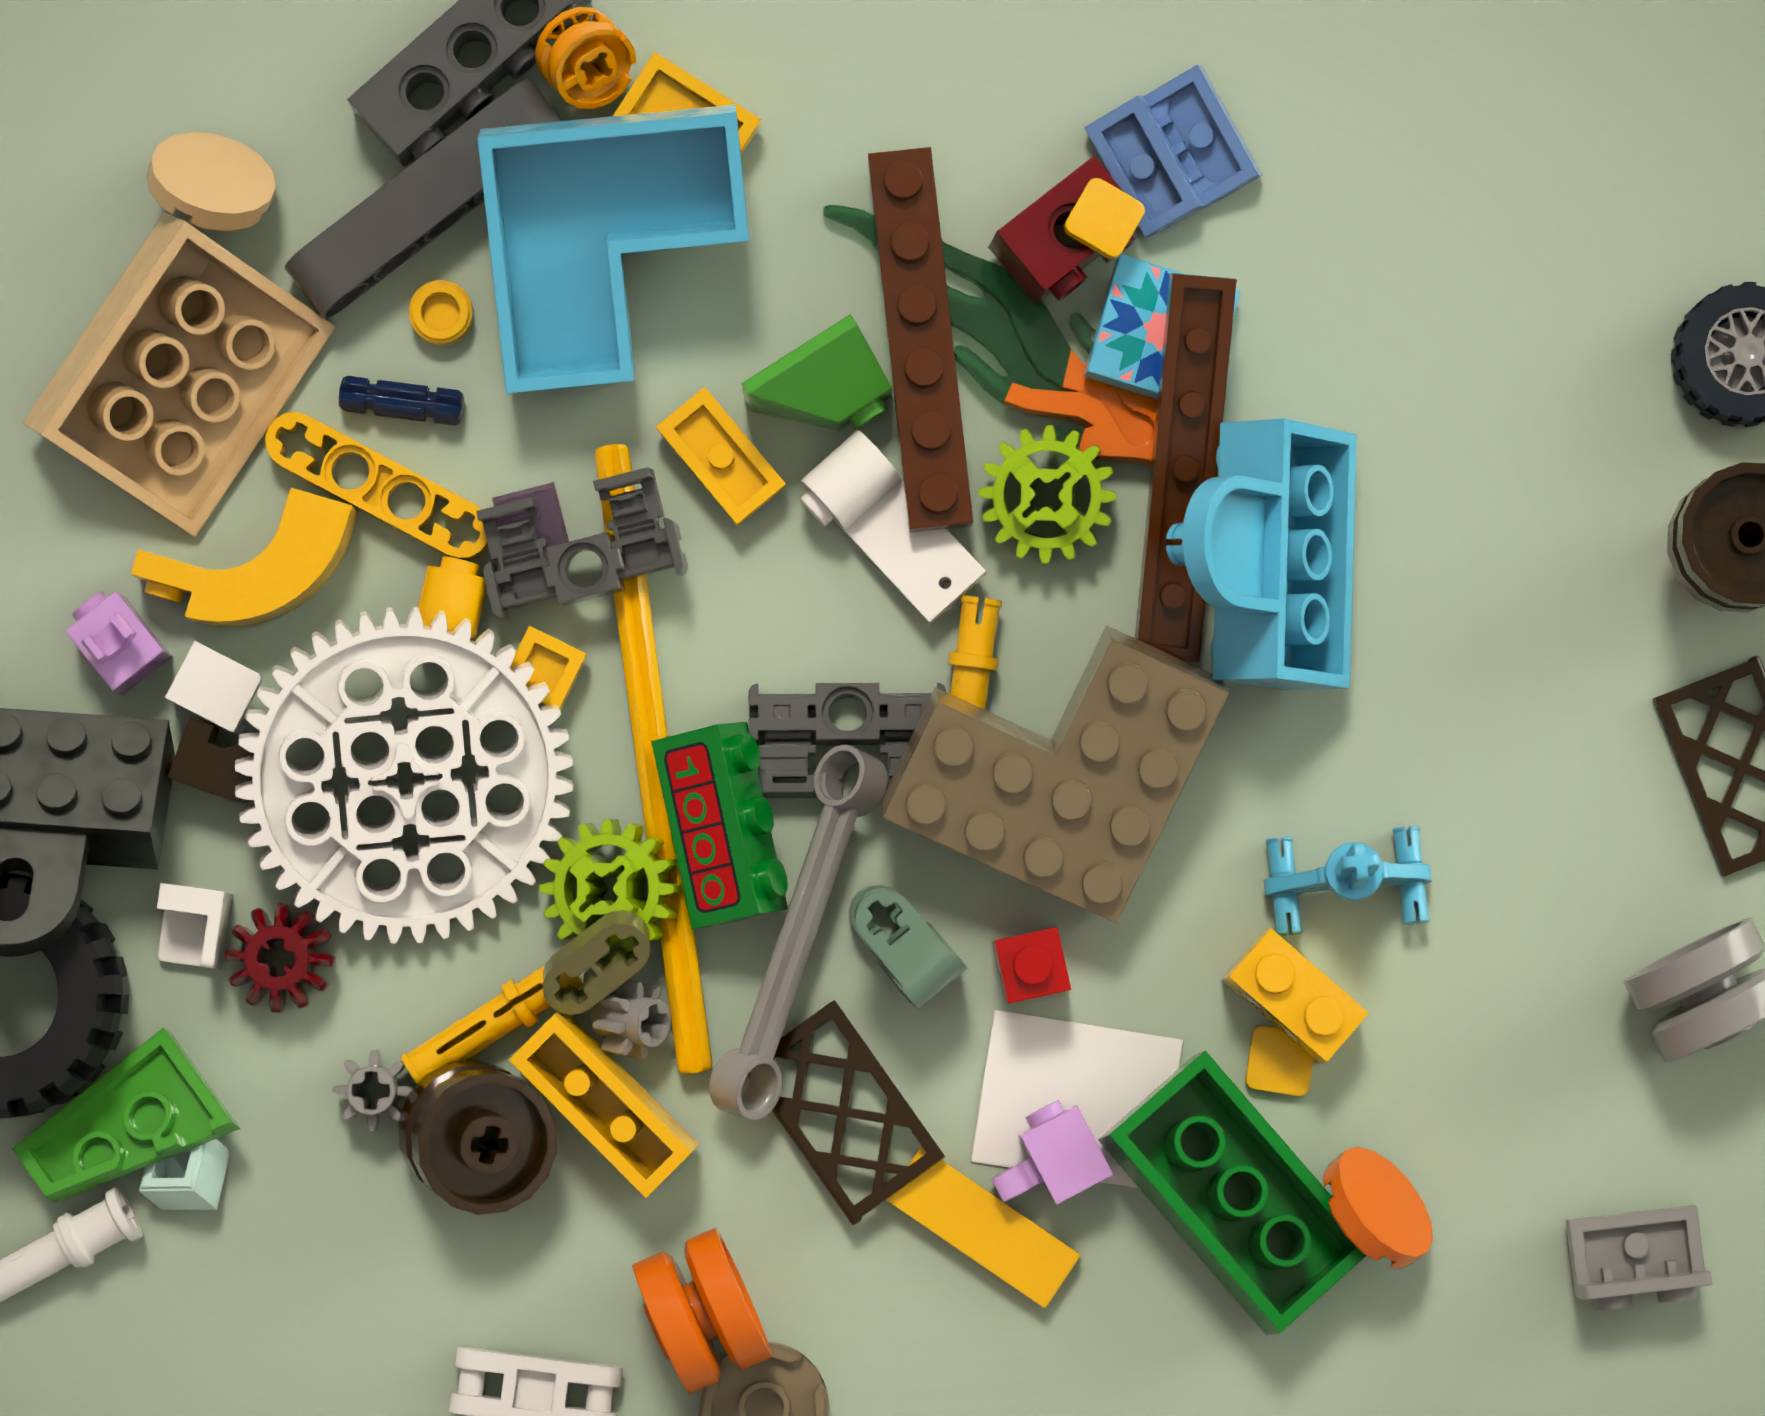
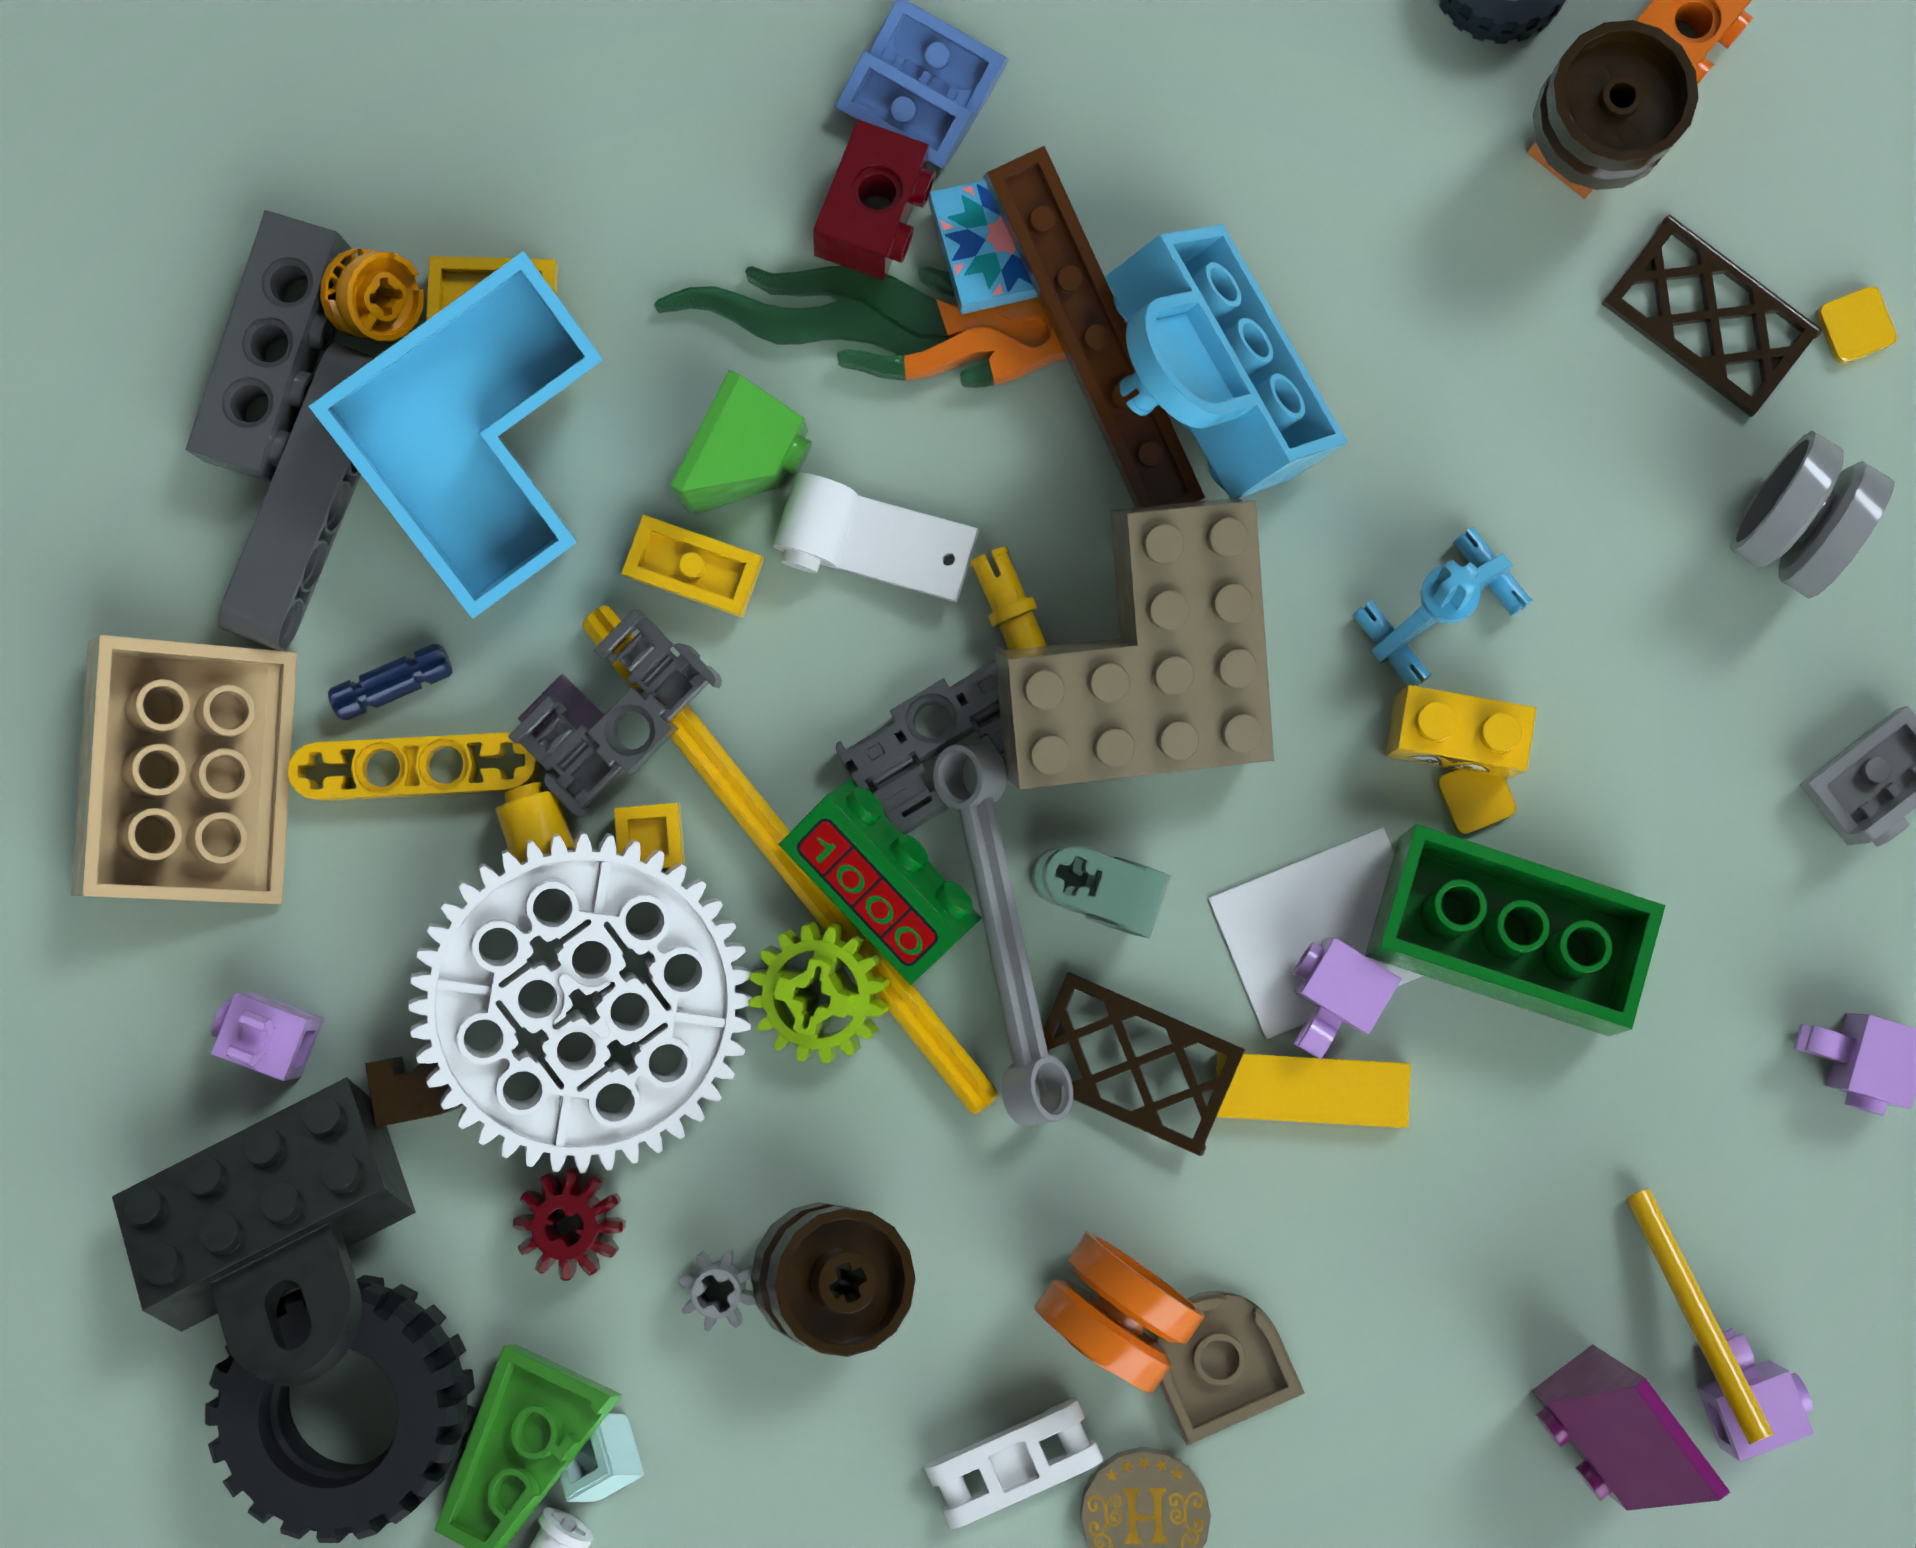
camera: 25 degrees left, 0 degrees up
(193, 925) = (478, 1239): white panel -> none
(211, 180) = (110, 590): tan tile -> none
(215, 687) = (371, 1024): white panel -> none
(280, 579) = (377, 890): yellow arch -> none
(441, 313) = (380, 587): yellow tile -> none
(485, 1025) = (814, 1105): yellow pin -> none
(604, 973) = (858, 1069): olive beam -> none
(604, 1102) = (925, 1181): yellow brick -> none
(631, 1019) = (904, 1093): light grey gear -> none
(920, 340) = (803, 366): reddish brown plate -> none
(1026, 472) = (962, 422): lime gear -> none
(1031, 965) = (1220, 841): red brick -> none
(1104, 218) = (898, 165): yellow piece -> none
(1378, 1207) = (1644, 870): orange tile -> none

